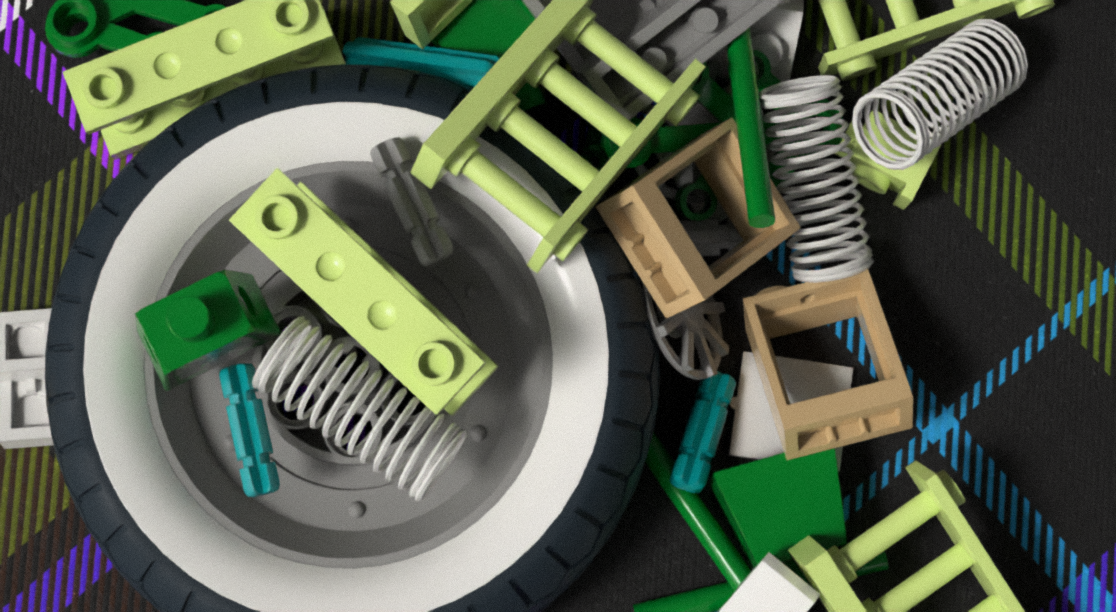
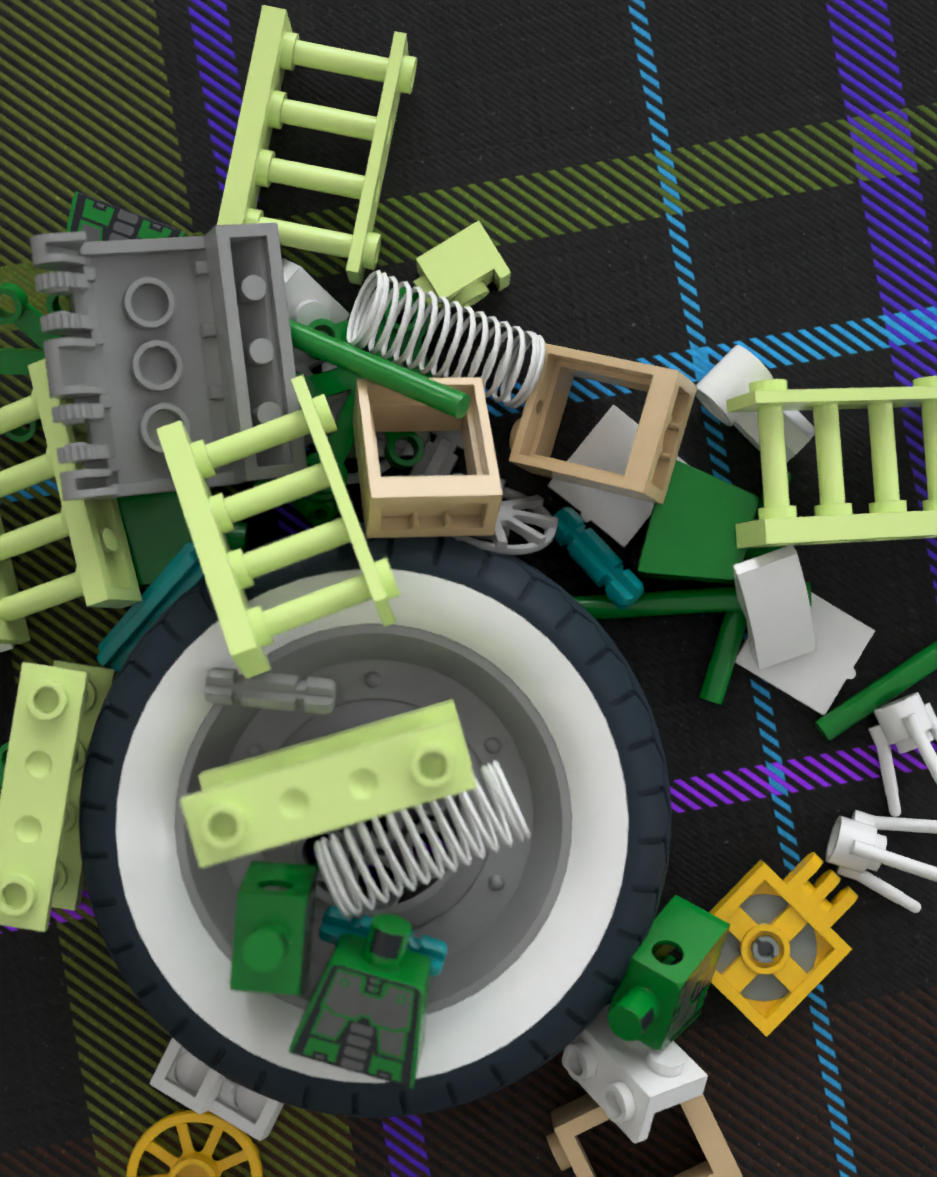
camera: 65 degrees left, 5 degrees up
(188, 447) = (369, 1005): none -> torso
(935, 453) = (732, 379): none -> white piece
(990, 95) = (443, 226): white piece -> none

